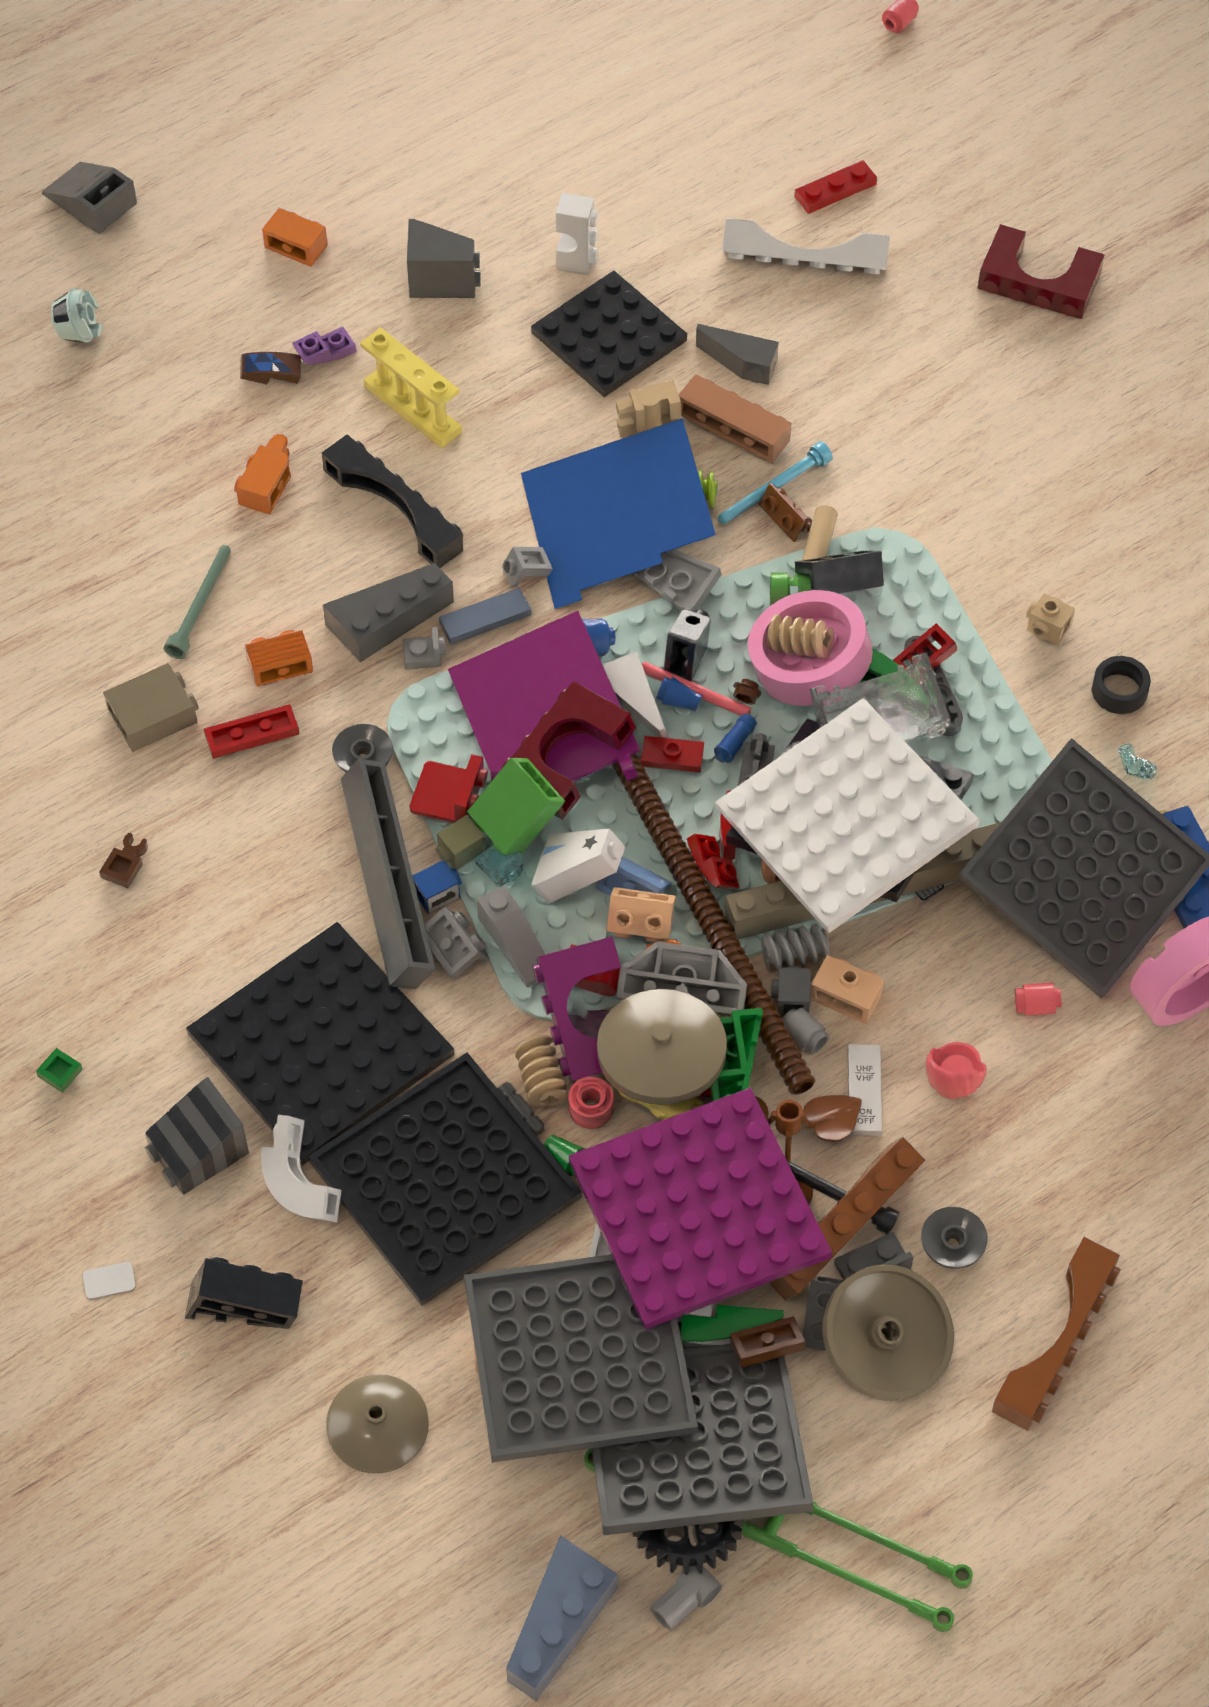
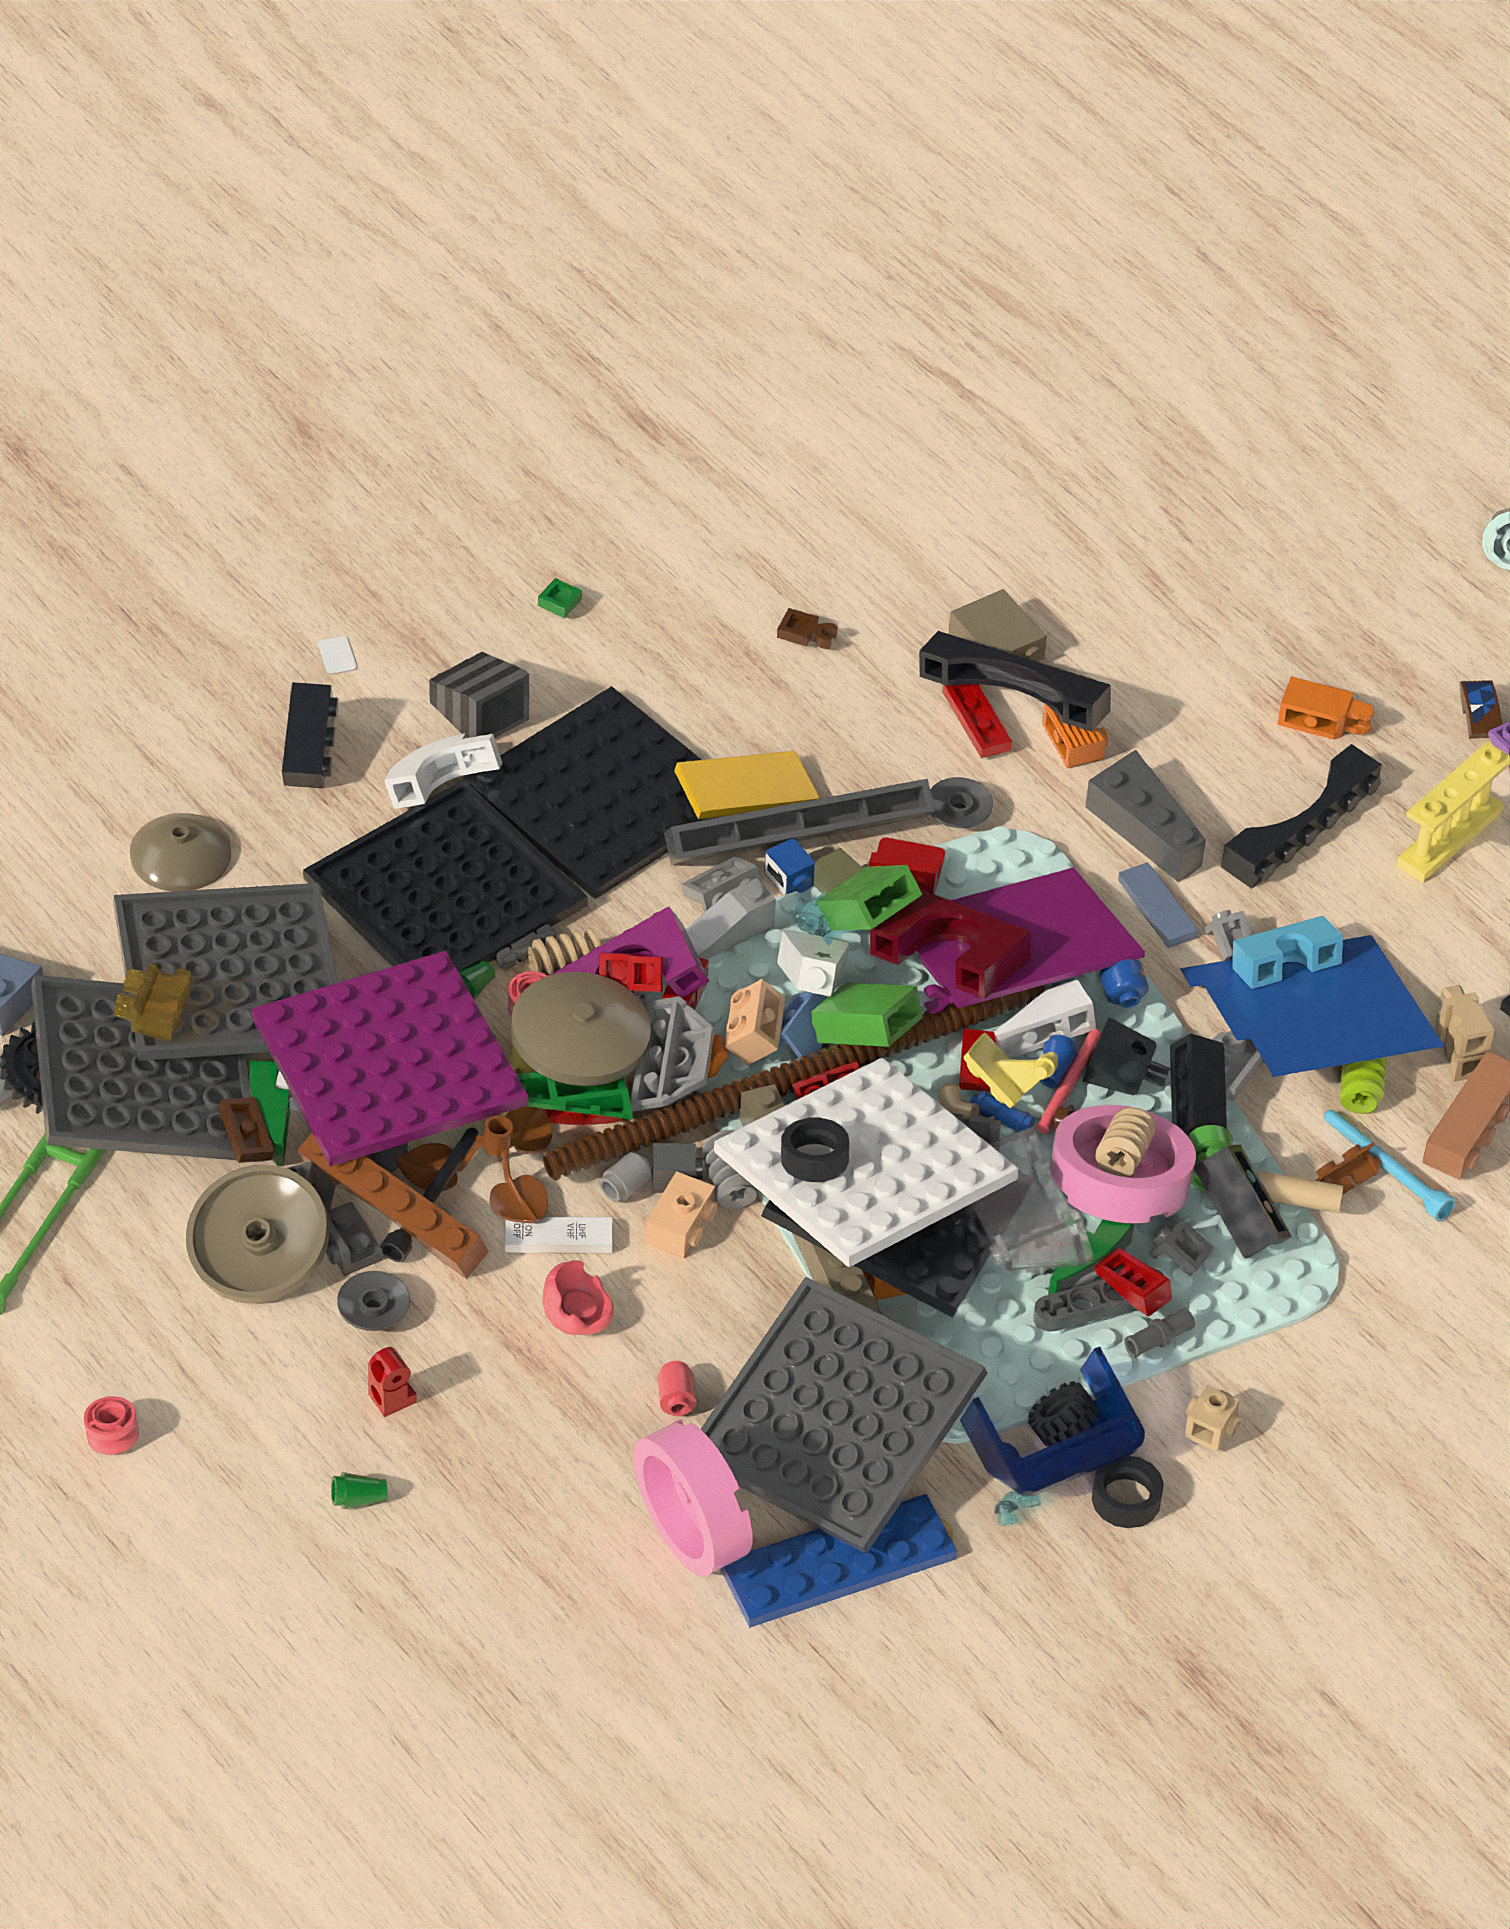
camera: 85 degrees right, 10 degrees down
(178, 643) = (1086, 654): sand green piece -> none
(265, 640) = (961, 661): none -> black arch
(334, 914) = (744, 783): none -> yellow tile
(423, 651) = (1101, 853): light grey bracket -> none
(563, 539) = (1309, 942): none -> medium azure arch
(601, 991) = (632, 970): none -> red slope
(630, 1407) = (157, 1003): none -> clear yellow hips
(646, 820) = (867, 1014): none -> bright green brick
(710, 725) = (1007, 1077): none -> light yellow plate
(721, 593) = (1197, 1083): none -> black panel
(725, 774) = (951, 1101): none -> tan arm
(854, 818) = (815, 1167): none -> black tyre
(880, 622) = (1181, 1245): none -> dark grey bracket
(969, 646) = (1159, 1332): none -> dark grey pin
(1027, 1387) = (322, 1417): dark orange arch -> none
(1052, 1220) = (389, 1381): none -> red leg
(1072, 703) = (1063, 1413): none -> black tyre
(1090, 703) = (1110, 1438): none -> clear blue windscreen
(1107, 1475) = (111, 1425): none -> coral wheel
(1163, 1254) = (357, 1490): none -> green cone

